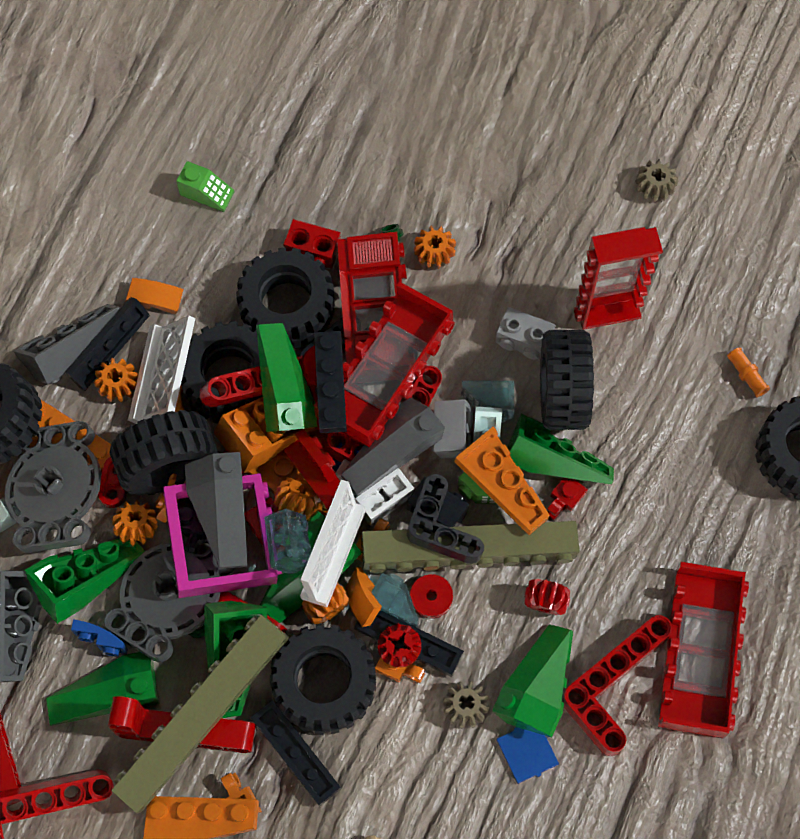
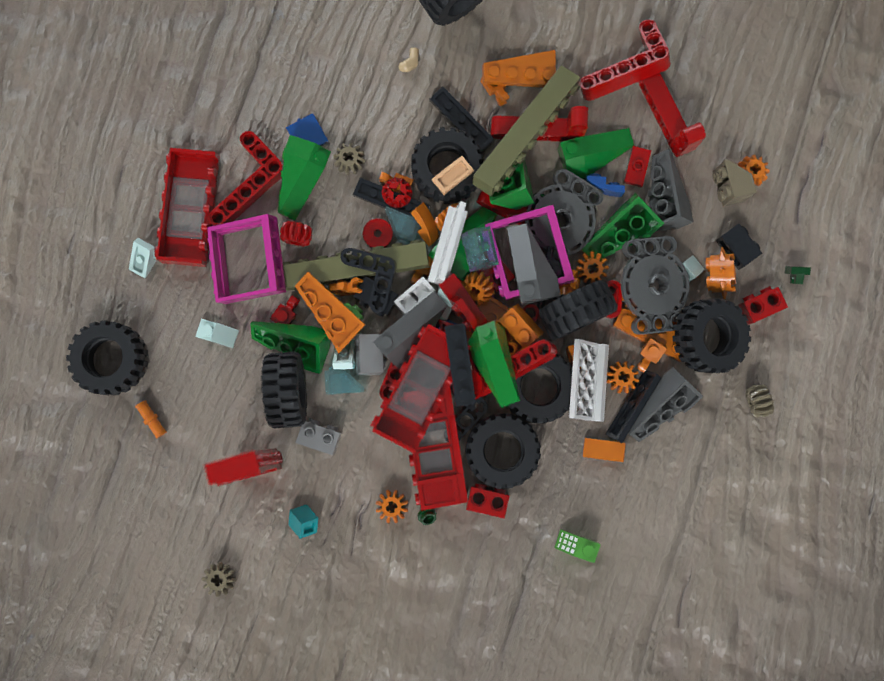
camera: 175 degrees right, 15 degrees up
(47, 665) = (637, 166): none -> red plate
(71, 407) = (652, 352): none -> orange plate
(316, 650) = (452, 175): none -> light nougat tile
(479, 516) = (344, 288): none -> orange plate
(549, 238) = (303, 521): none -> teal panel
(579, 563) = (272, 251): none -> dark pink window
(659, 476) = (217, 333): none -> light aqua slope
(765, 583) = (142, 258): none -> light aqua slope

